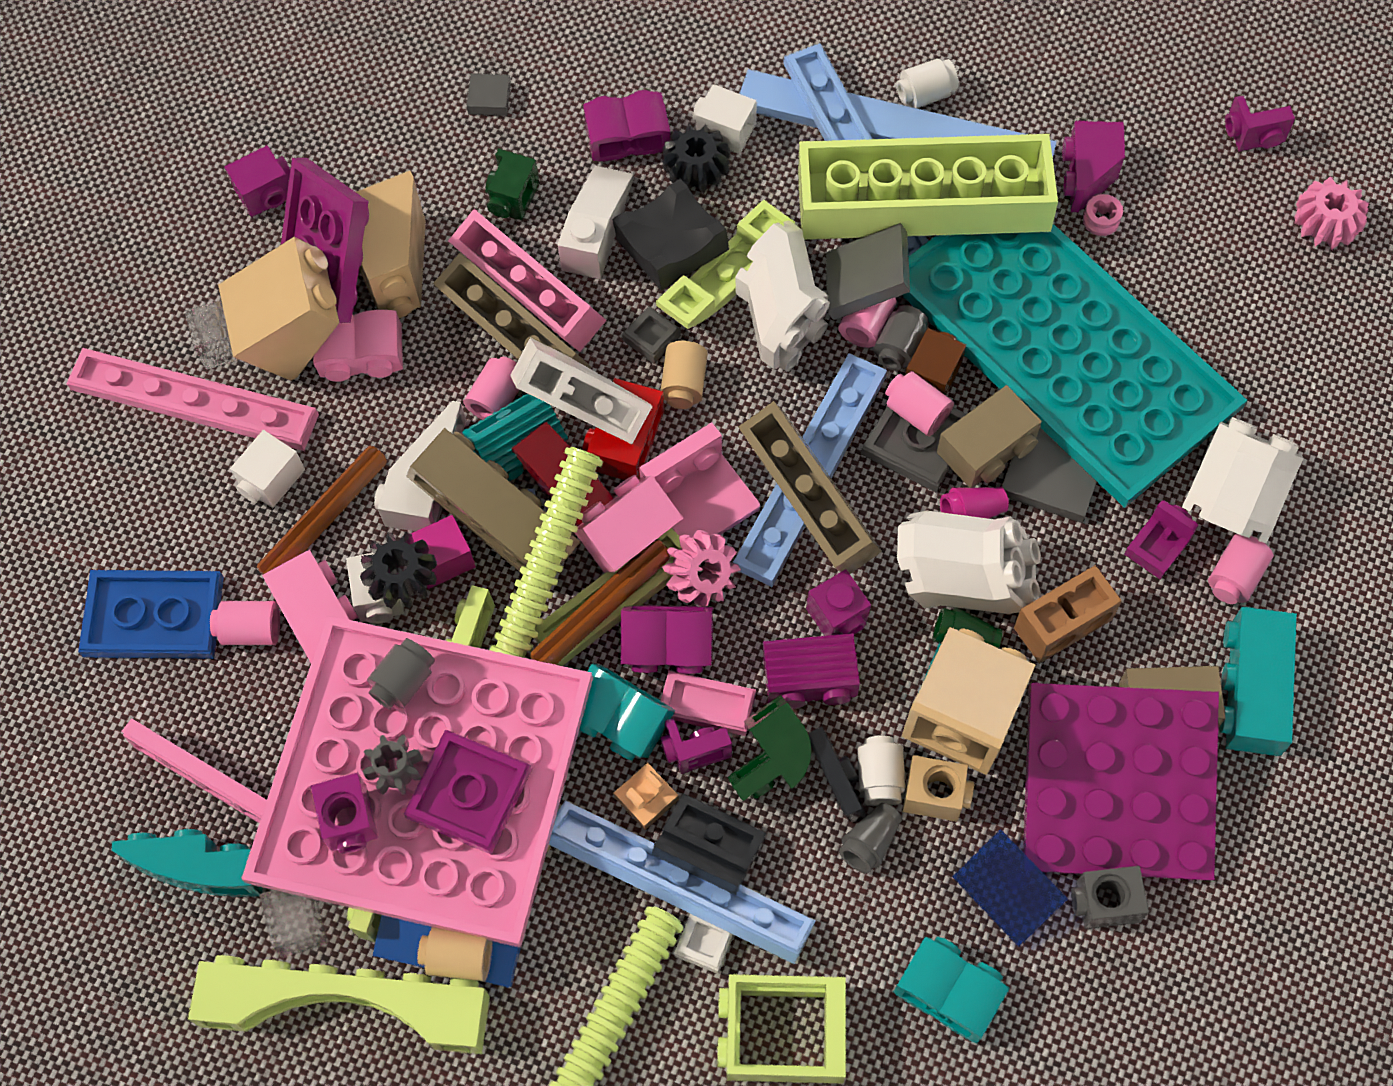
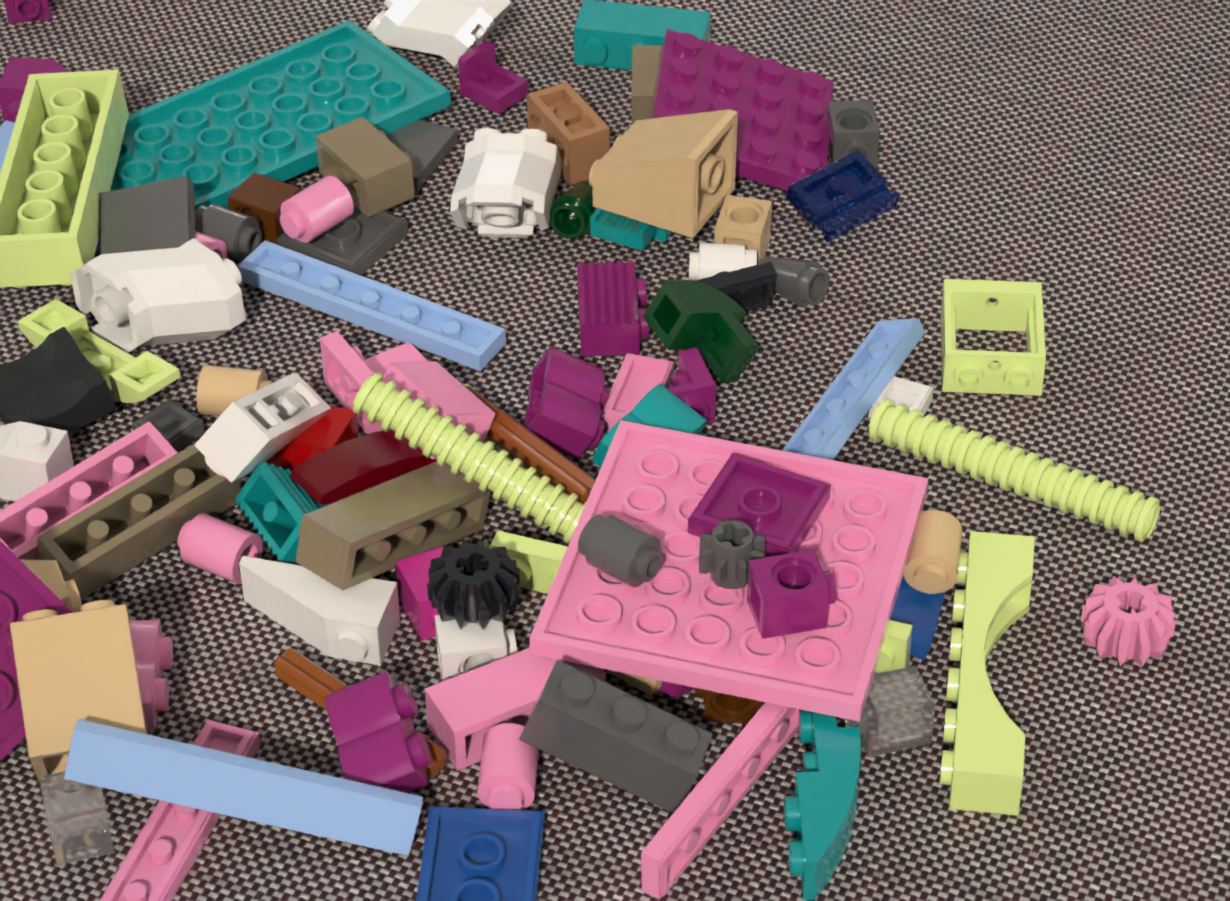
camera: 90 degrees left, 25 degrees down
(204, 433) = (243, 787): none -> light blue tile
(246, 694) = (616, 736): none -> dark grey brick
(265, 522) = (378, 734): none -> magenta brick
(267, 469) = (293, 743): white brick -> none
(646, 796) = (744, 428): light nougat tile -> none
(687, 563) = (490, 367): bright pink gear -> none
(709, 844) = (799, 384): black plate -> none
(809, 489) = (413, 269): dark tan brick -> none
(838, 605) = (542, 283): magenta brick -> none
(952, 989) = (944, 233): teal brick -> none
(975, 502) = (432, 198): dark pink cone -> none
(1240, 569) = (527, 40): bright pink brick -> none

